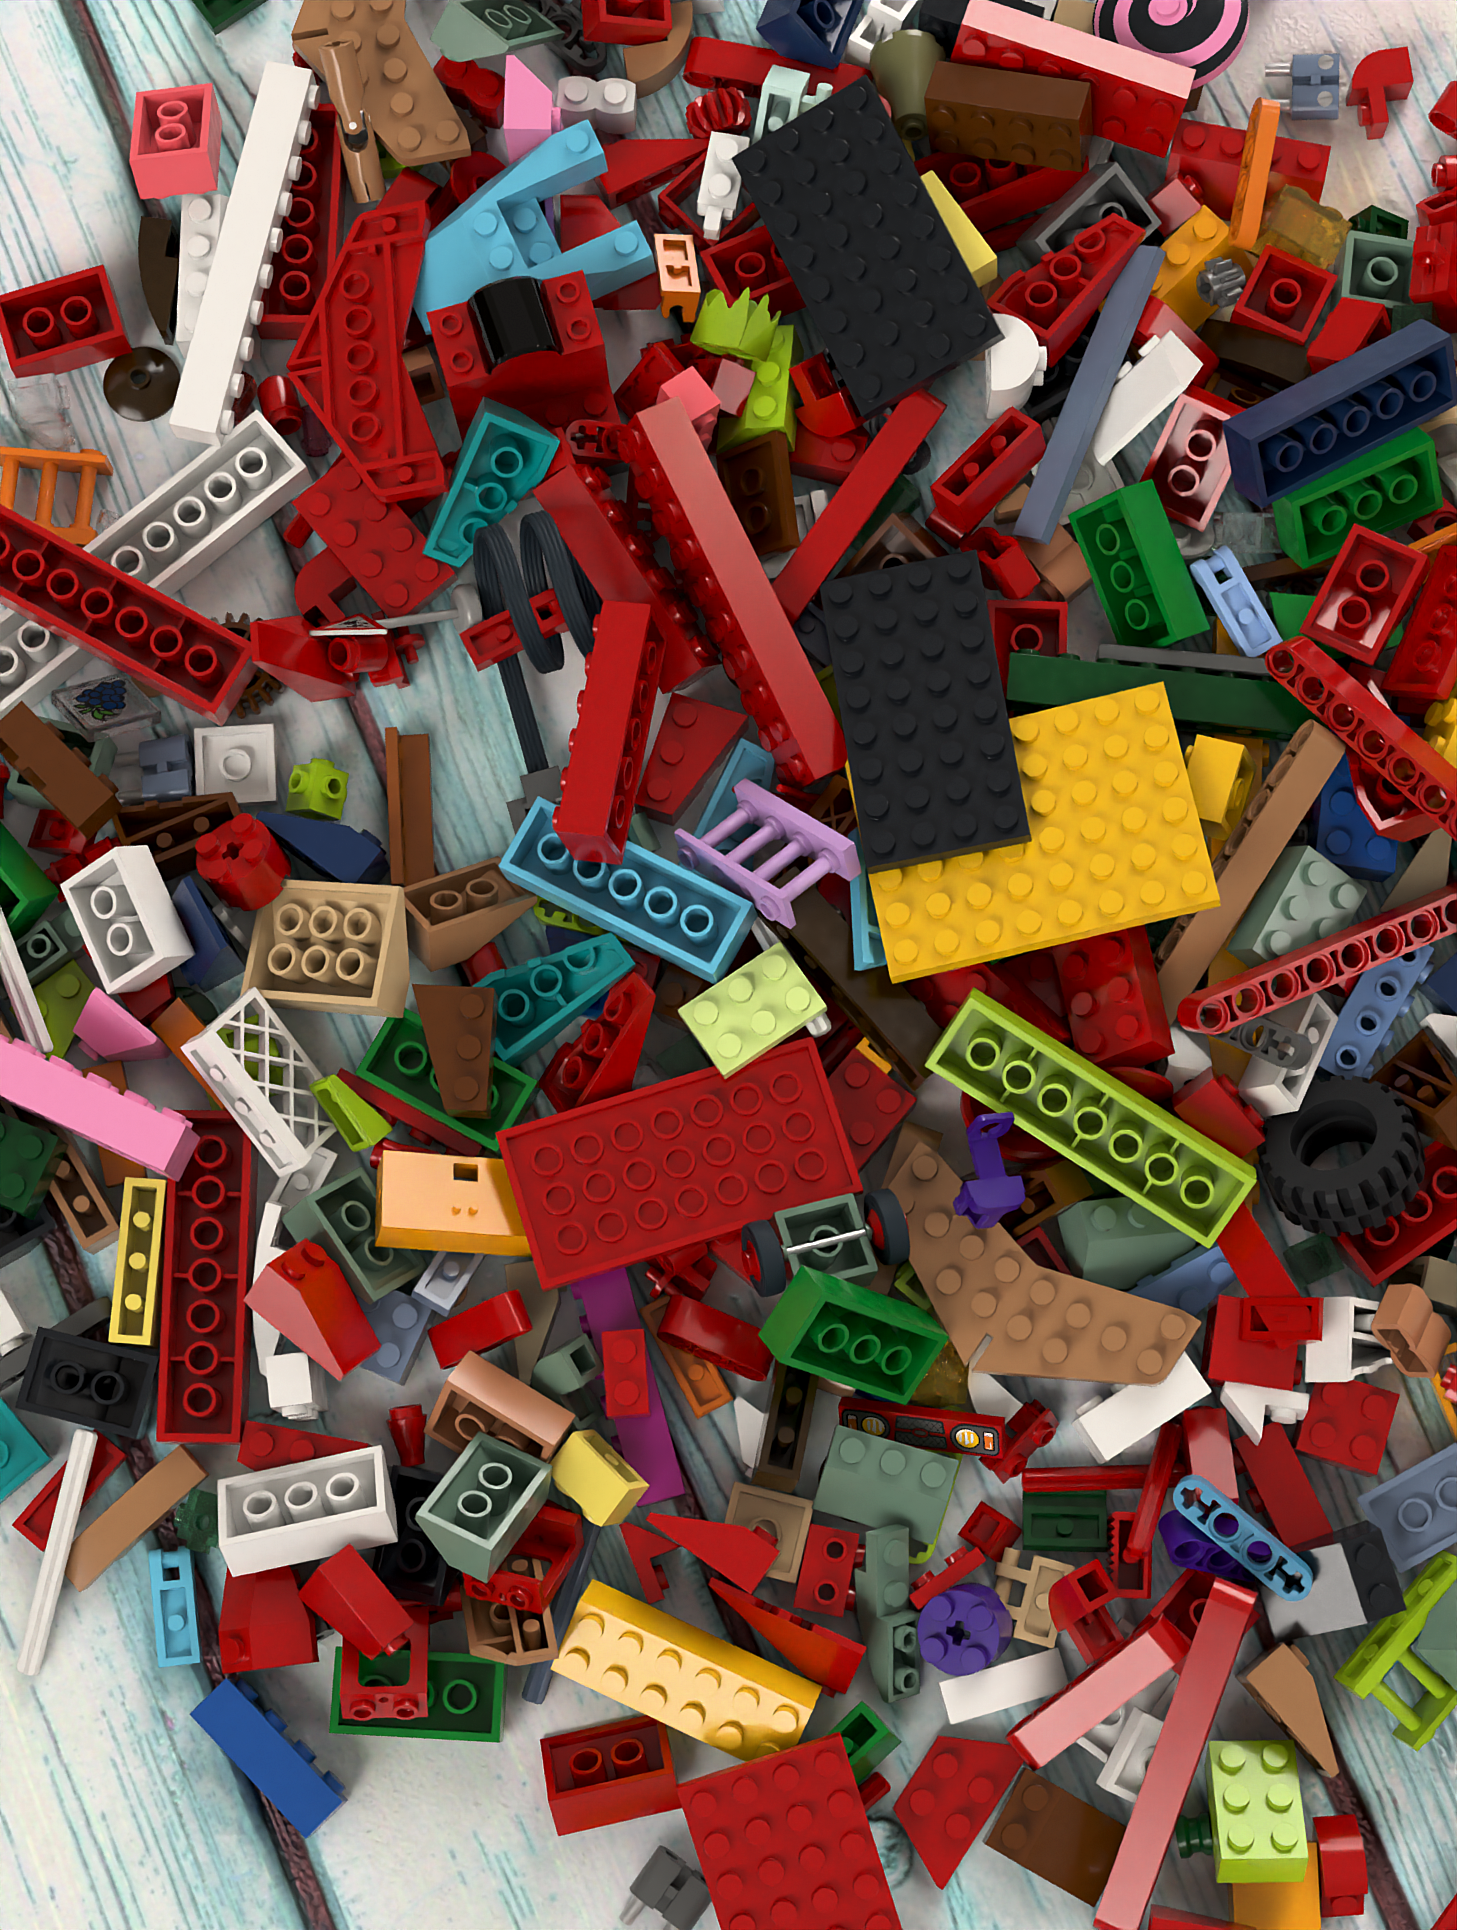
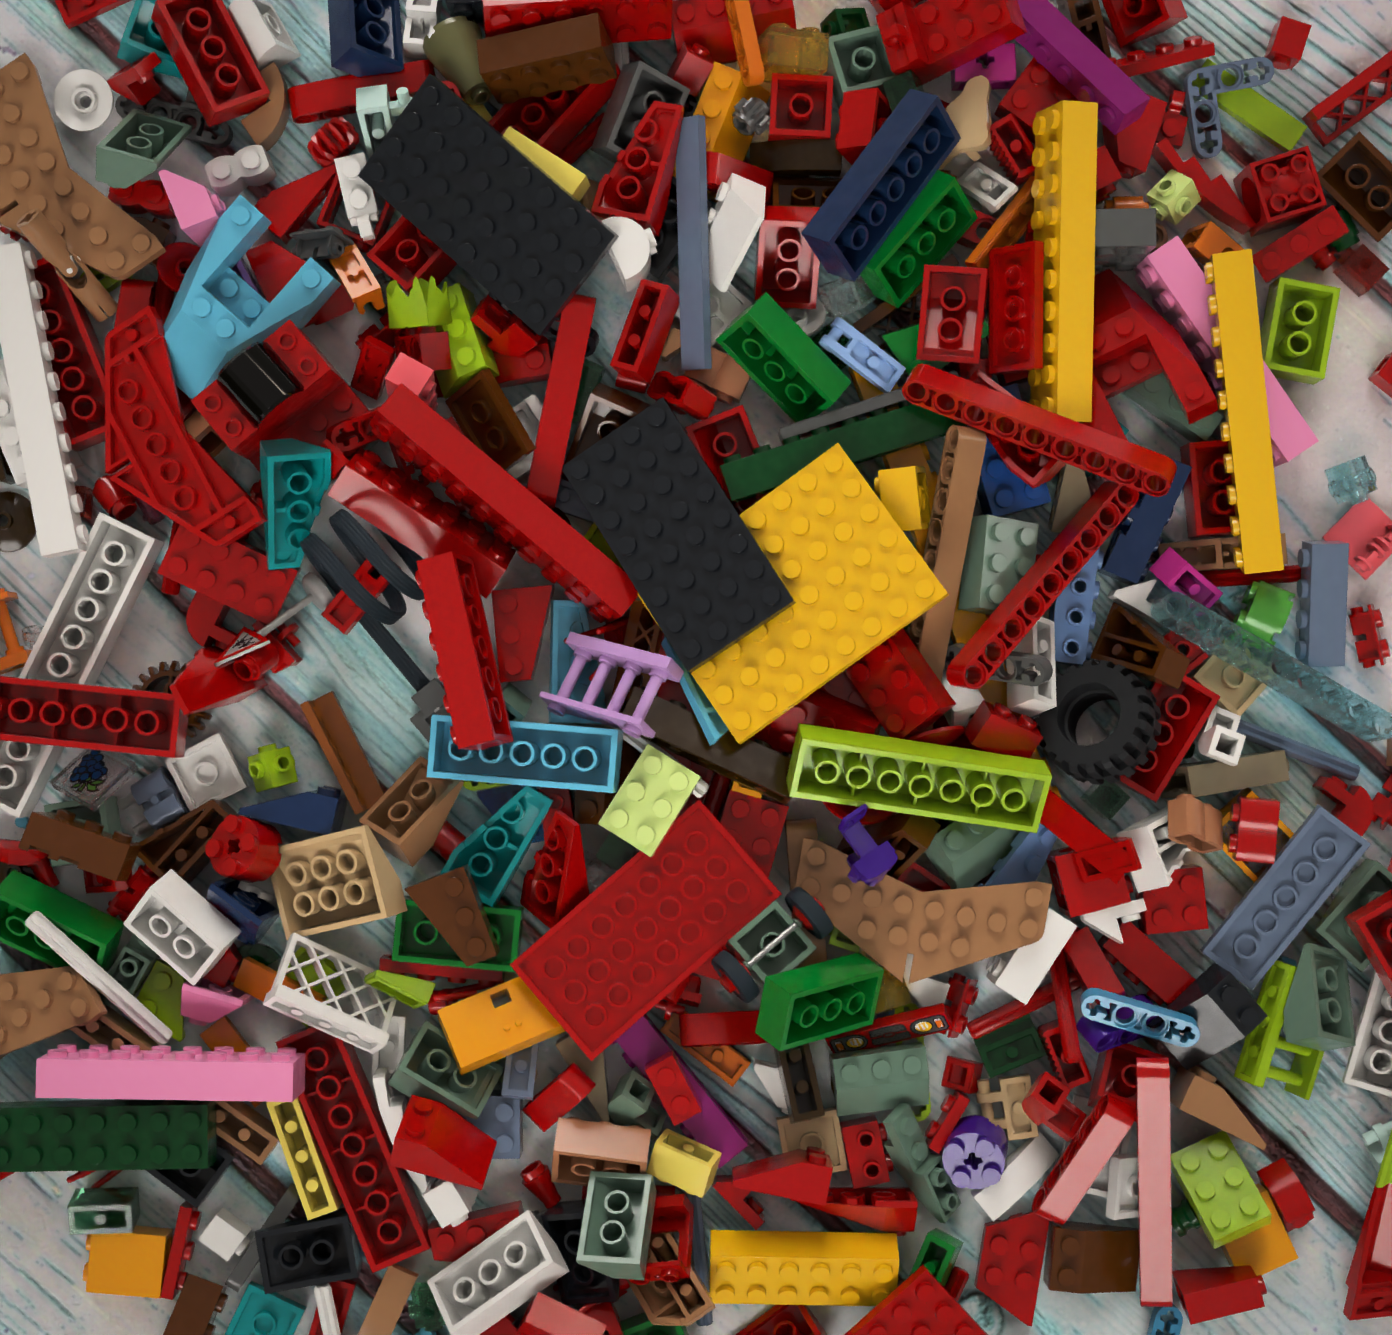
camera: 30 degrees left, 10 degrees up
(655, 217) = (320, 243): none -> dark grey hinge

